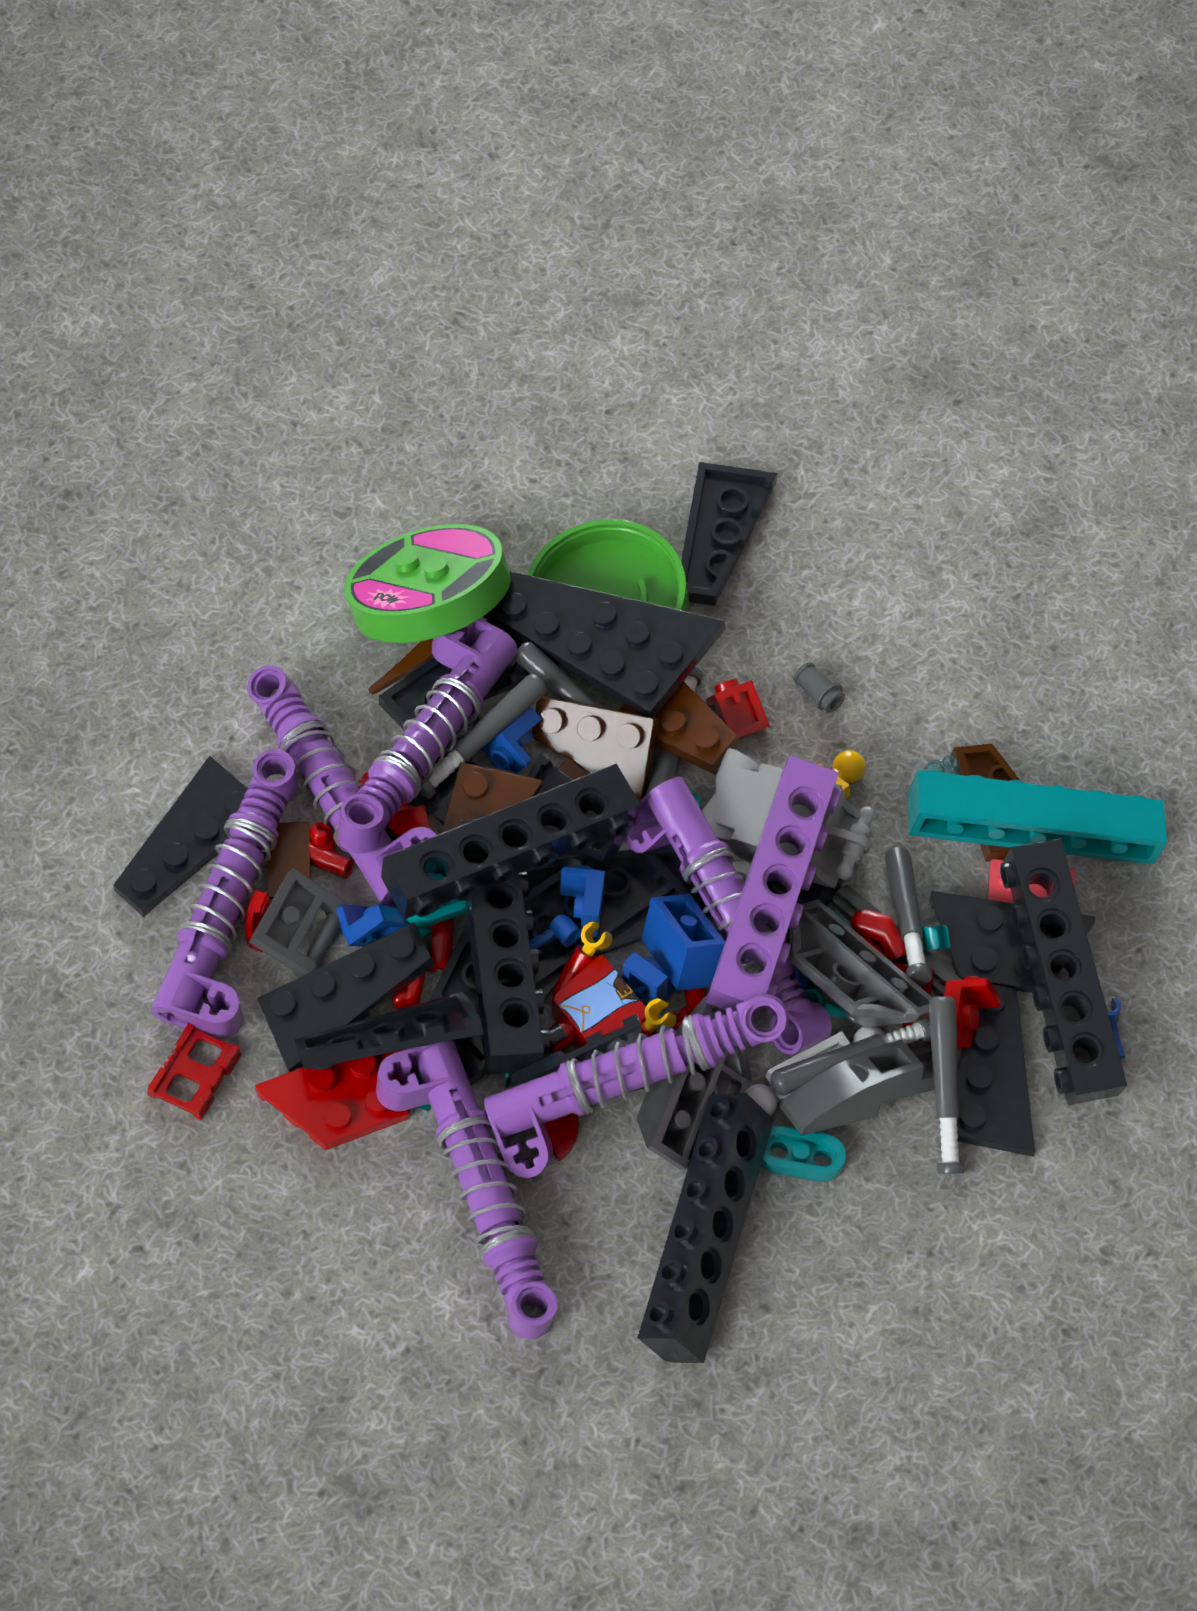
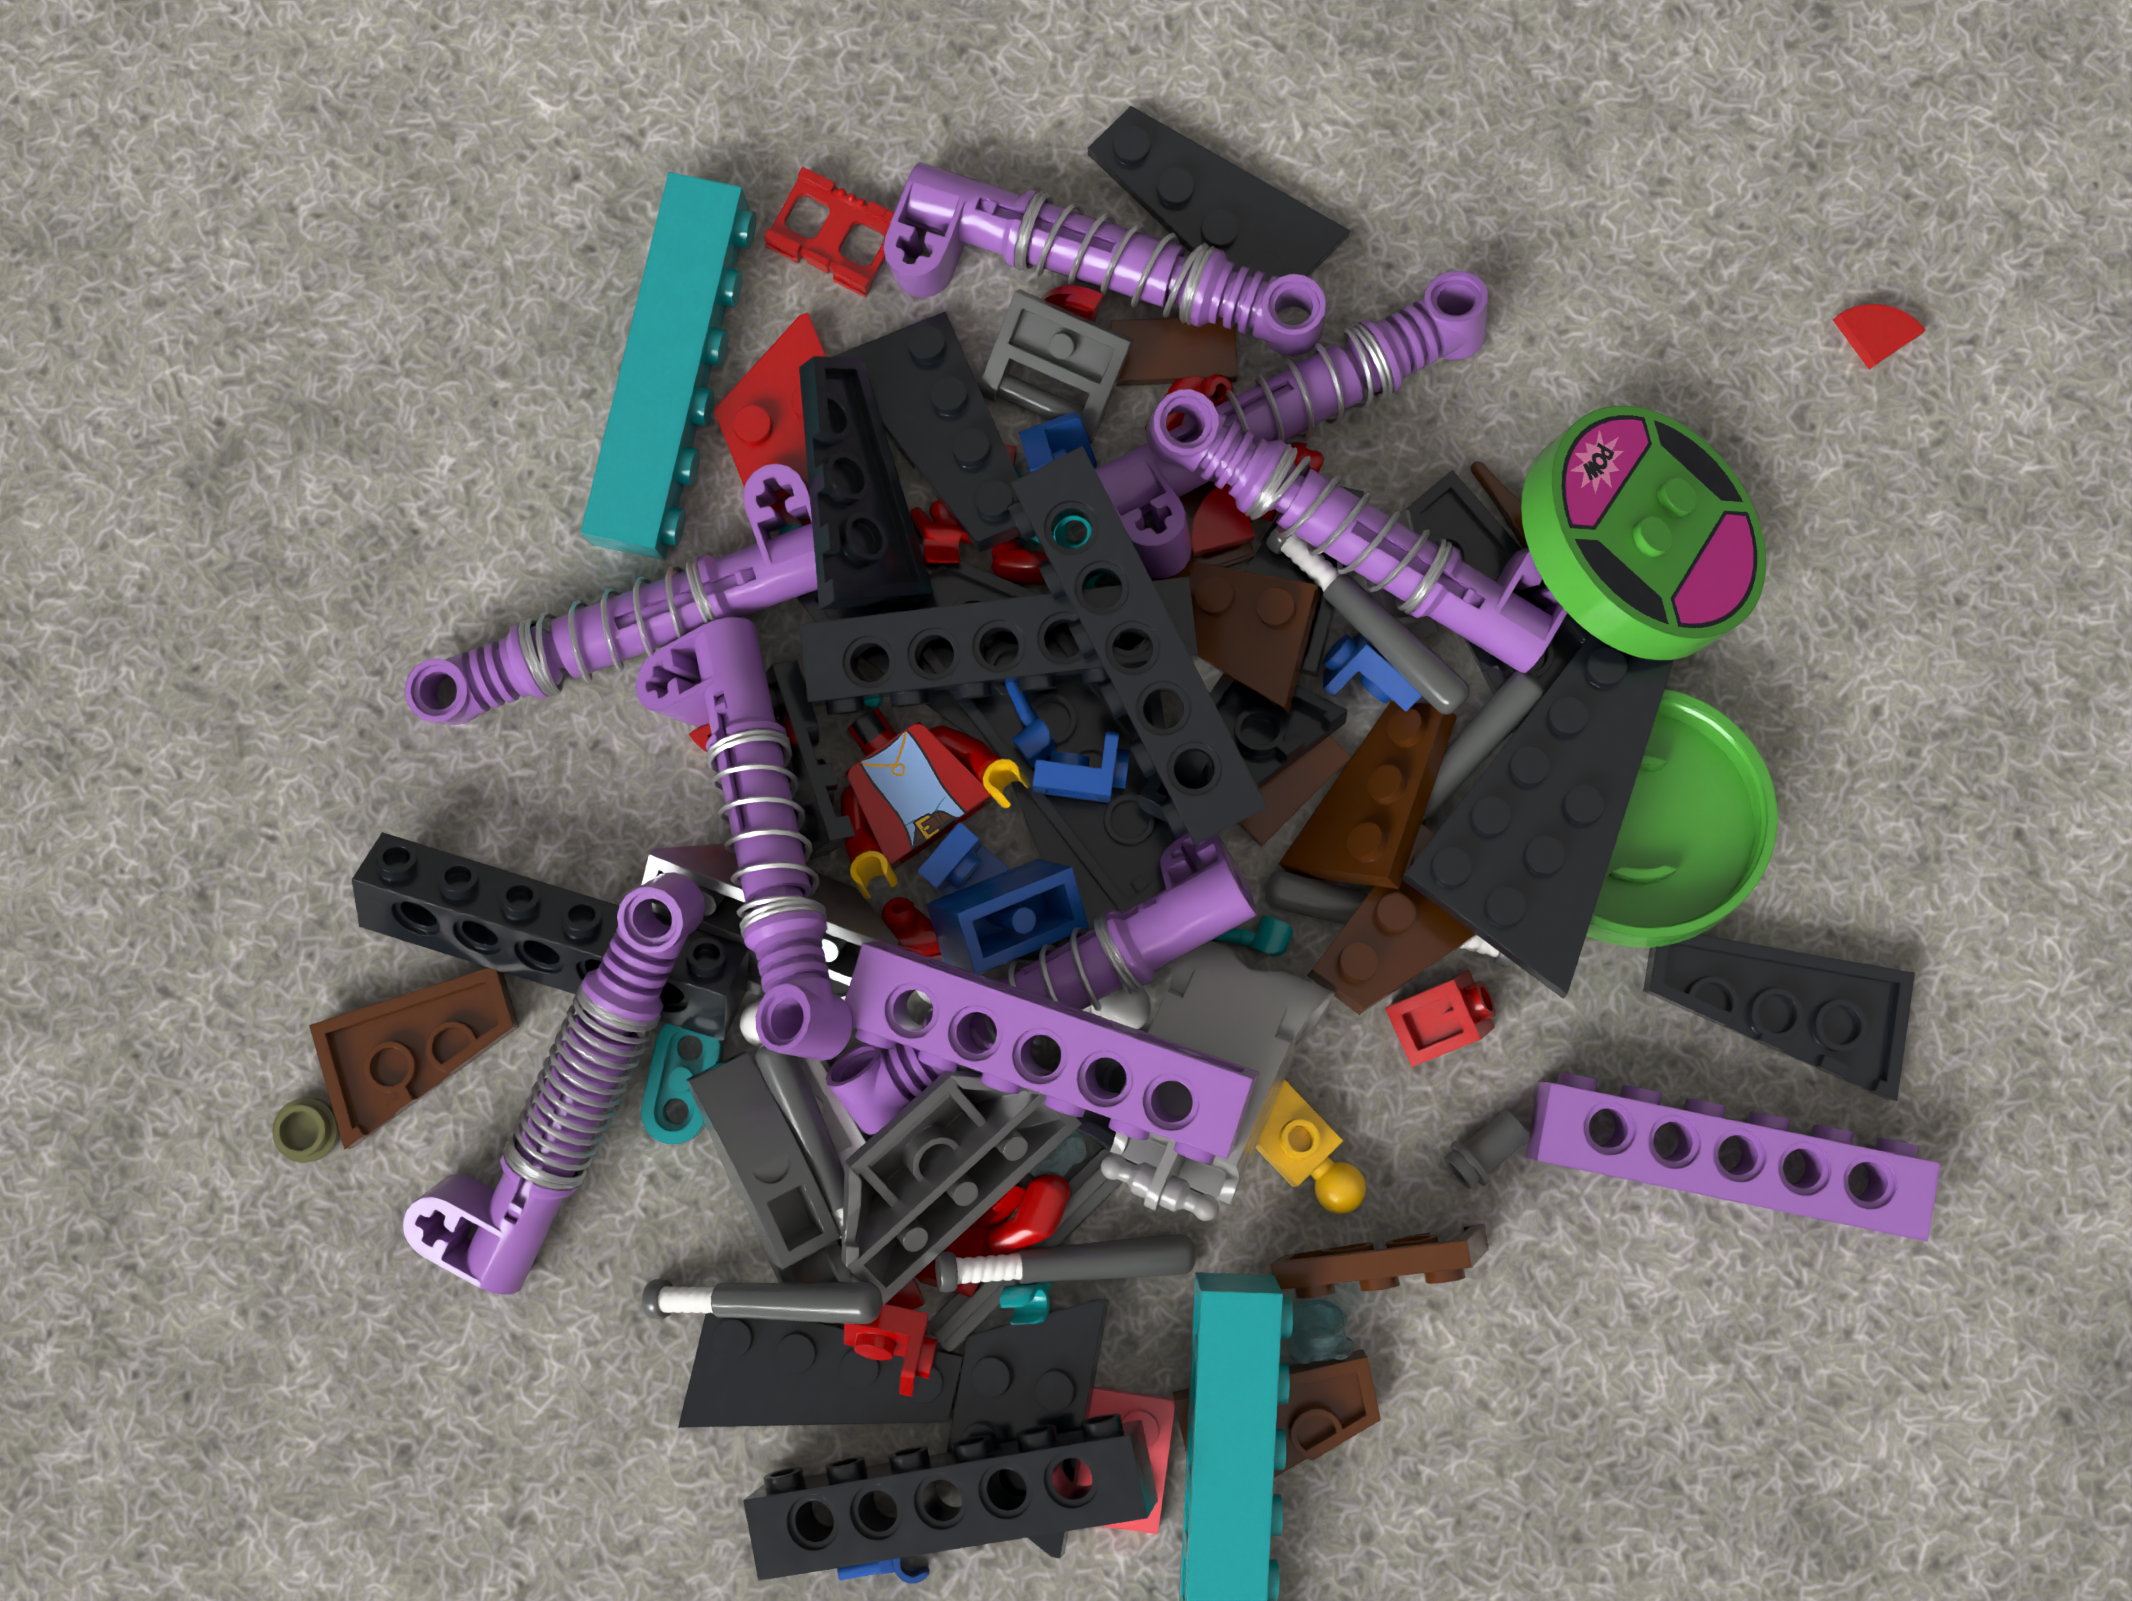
camera: 95 degrees right, 25 degrees up
(289, 471) = (1877, 331): none -> red tile
(294, 1170) = (668, 366): none -> teal brick
(424, 990) = (939, 541): none -> red hand
(786, 1334) = (407, 1046): none -> reddish brown wing
(829, 504) = (1898, 1188): none -> medium lavender brick
(850, 1403) = (305, 1130): none -> olive plate
(858, 1216) = (546, 1154): none -> medium lavender piece
(890, 727) = (1441, 1262): none -> reddish brown wing

